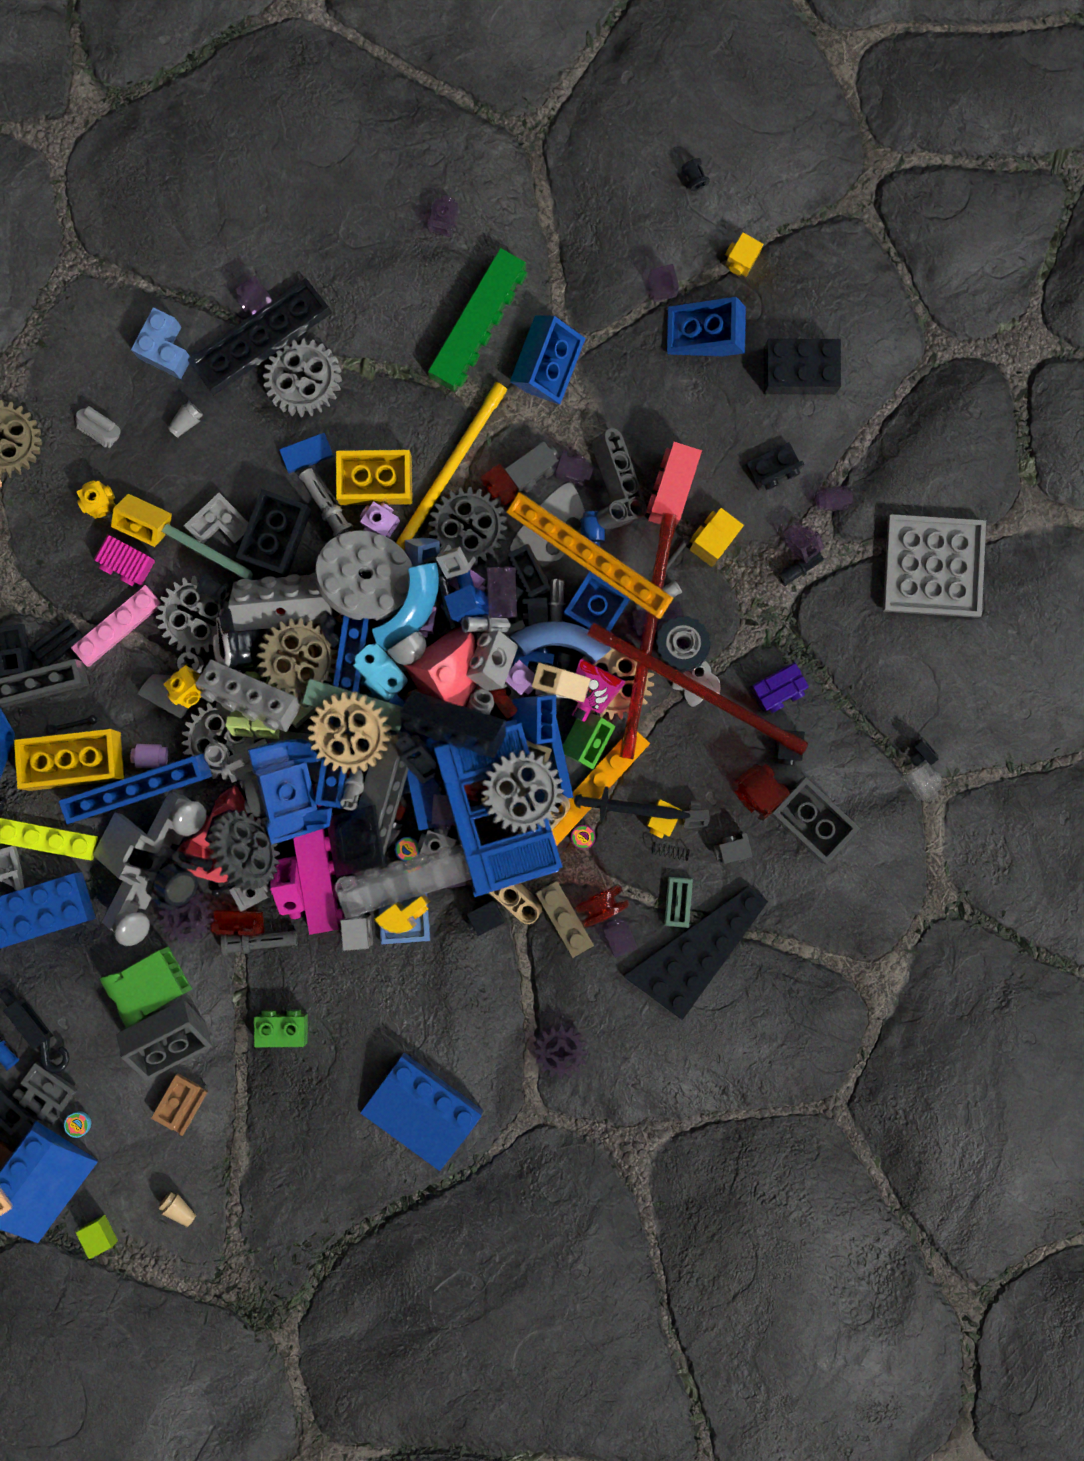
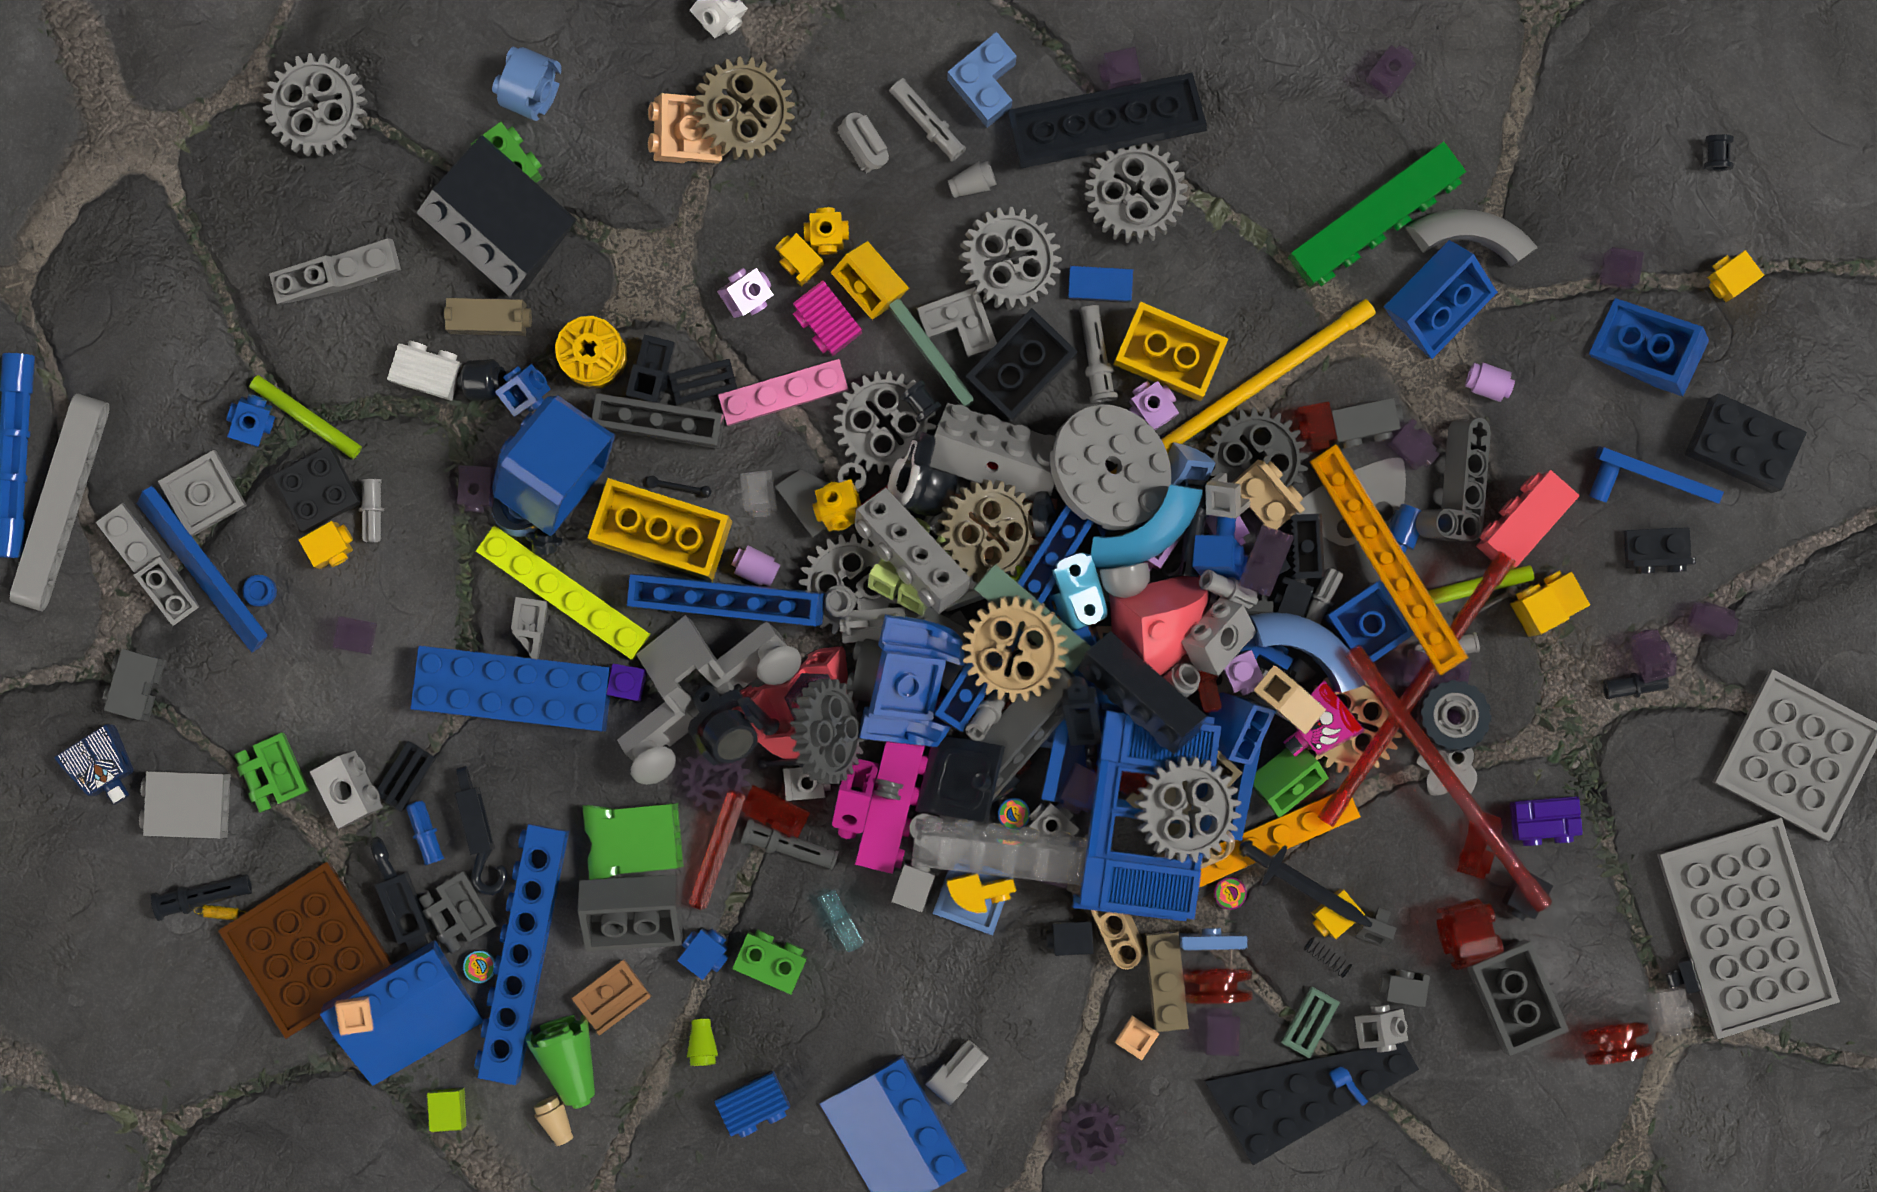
camera: 30 degrees right, 0 degrees up
(57, 574) = (746, 292): none -> brick
(86, 527) = (799, 258): none -> yellow brick
(93, 878) = (627, 682): none -> dark purple brick
(114, 1113) = (490, 1064): none -> blue brick
(129, 704) = (758, 493): none -> clear brick
(143, 394) = (934, 127): none -> light grey pin
(164, 1163) = (566, 1058): none -> bright green cone
(208, 967) = (717, 849): none -> clear red axle
(220, 446) = (1002, 232): none -> light grey gear
(231, 1044) = (704, 952): none -> blue brick
(258, 1109) = (702, 1045): none -> lime cone
(307, 871) = (888, 789): none -> dark grey bush
(312, 1135) = (753, 1104): none -> blue brick
(318, 978) = (840, 921): none -> clear light blue axle
(445, 1053) = (952, 1077): none -> light grey piece
(485, 547) = (1268, 495): none -> tan bracket
(548, 299) = (1473, 226): none -> light grey brick
(562, 967) = (1136, 1037): none -> light nougat tile
(583, 875) = (1212, 940): none -> medium blue plate
(606, 401) = (1489, 381): none -> lavender brick
(650, 555) = (1466, 588): none -> lime piece
(716, 931) = (1341, 1077): none -> blue hand
(717, 418) = (1613, 461): none -> blue piece
(729, 884) = (1381, 1028): none -> light grey brick
(742, 737) = (1474, 857): none -> clear red hinge
(897, 822) = (1616, 1043): none -> clear red wheel
(952, 701) = (1748, 928): none -> light grey plate

